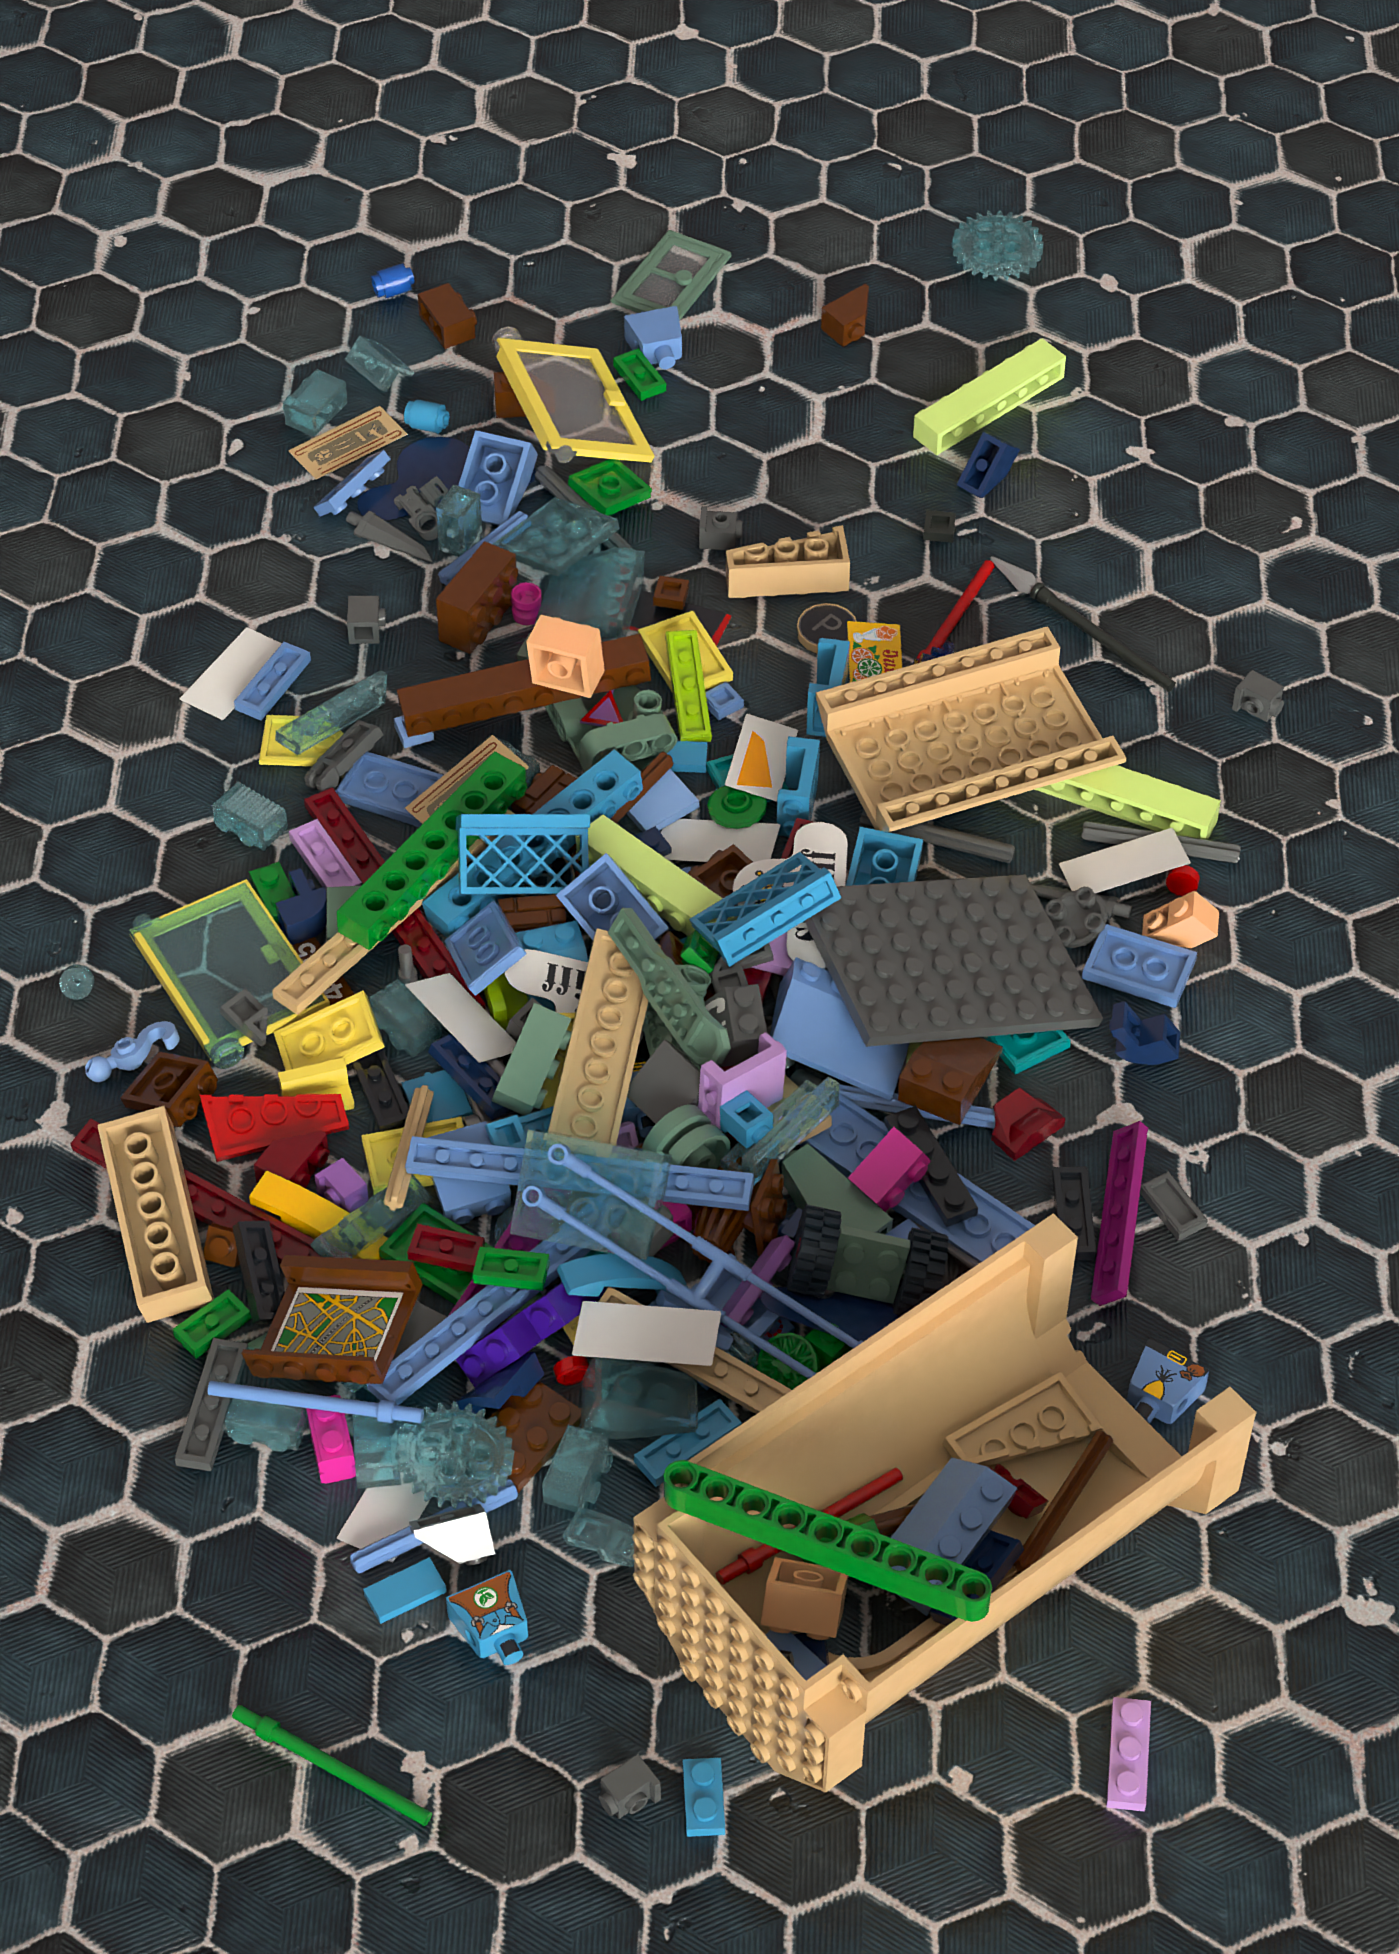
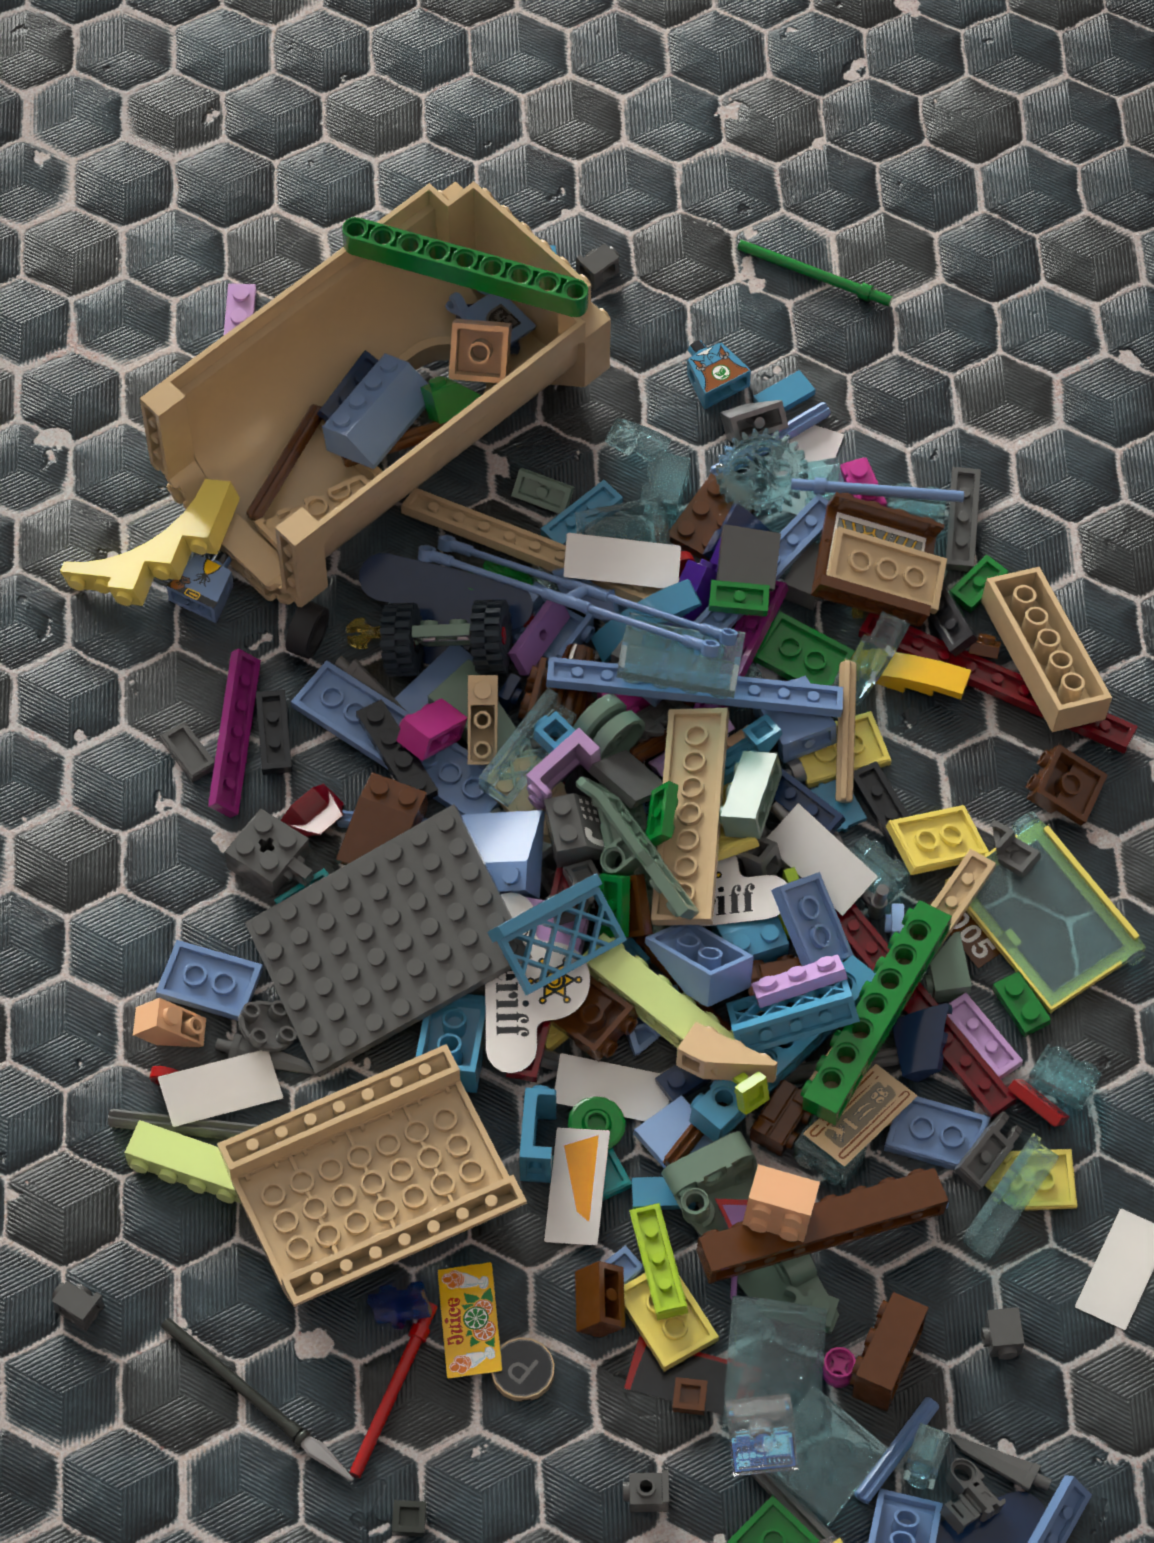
camera: 175 degrees right, 10 degrees up
(131, 1052) = (1108, 819): light blue piece -> none
(251, 1123) = (976, 758): red wing -> none
(272, 681) = (1080, 1248): medium blue plate -> none
(282, 792) = (1038, 1102): none -> red tile
(294, 1157) = (946, 723): dark red slope -> none
(304, 914) = (985, 972): dark blue brick -> none
(318, 1078) = (939, 796): light yellow panel -> none
(325, 1304) = (887, 567): none -> tan plate
(342, 1186) = (896, 704): medium lavender brick -> none
(384, 841) = (921, 1041): none -> dark blue slope
(390, 964) = (893, 922): none -> light blue plate
(445, 1248) = (798, 642): dark red plate -> none
(492, 1308) = (748, 556): none -> dark grey tile
(509, 882) = (799, 980): none -> lavender plate
(580, 768) = (750, 1091): none -> lime tile
(608, 801) = (719, 1057): none -> tan slope
(611, 525) = (761, 1434): none -> clear slope
(636, 1031) = (662, 813): none -> green plate
(748, 659) = (600, 1299): none -> reddish brown brick
(790, 566) = (561, 1433): tan wedge -> none
(830, 1171) = (482, 719): none -> tan slope
(831, 672) = (519, 1234): dark azure panel -> none
(1027, 1500) = (319, 467): dark red plate -> none
(1075, 1075) = (269, 854): none -> dark grey hinge
(1145, 1040) = (207, 898): dark blue brick -> none
(1255, 1377) = (166, 555): none -> light yellow arch

